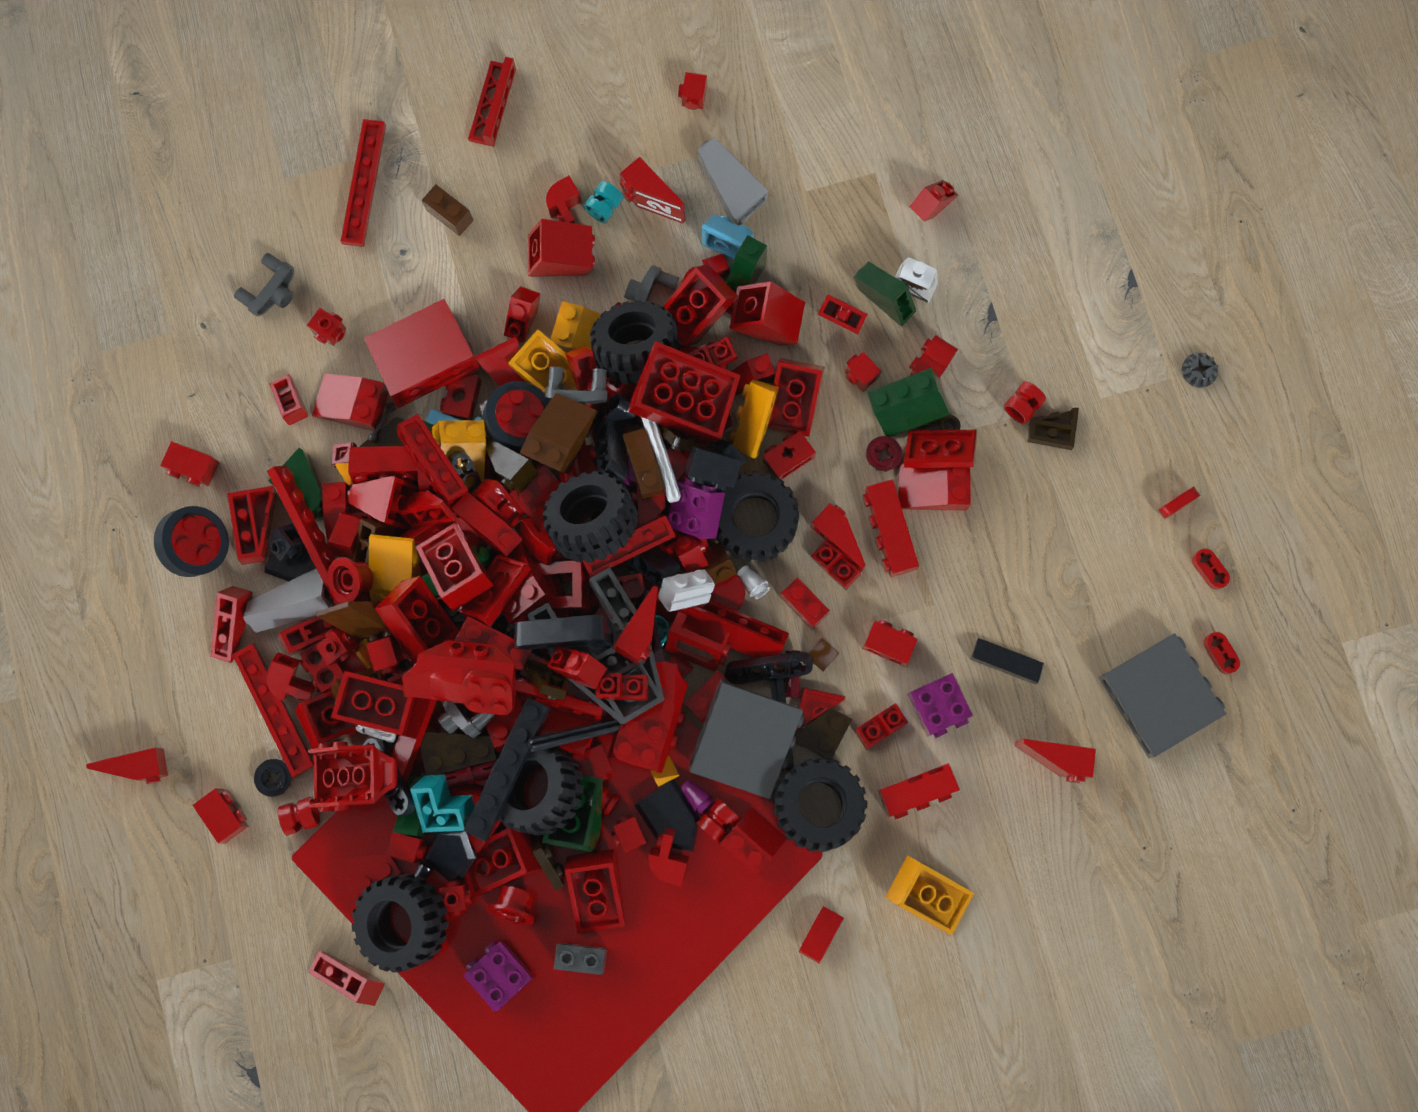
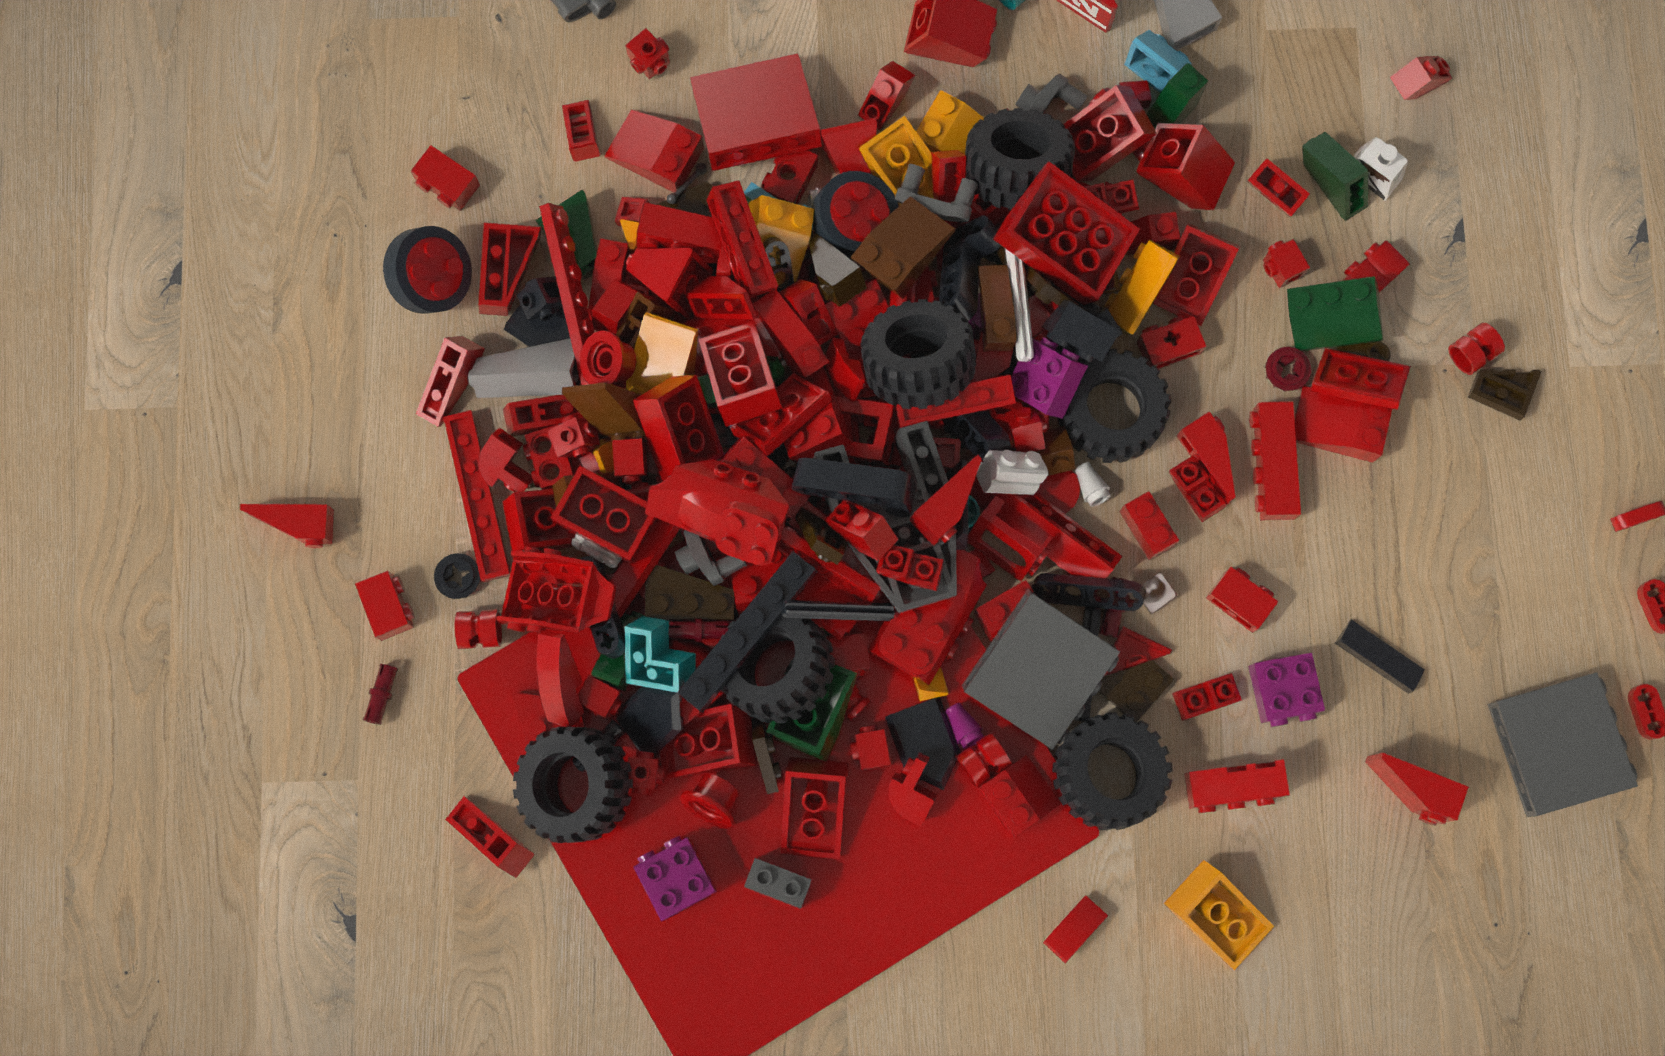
camera: 10 degrees right, 0 degrees up
(233, 886) = (380, 694): none -> dark red pin
(368, 843) = (558, 679): none -> red slope

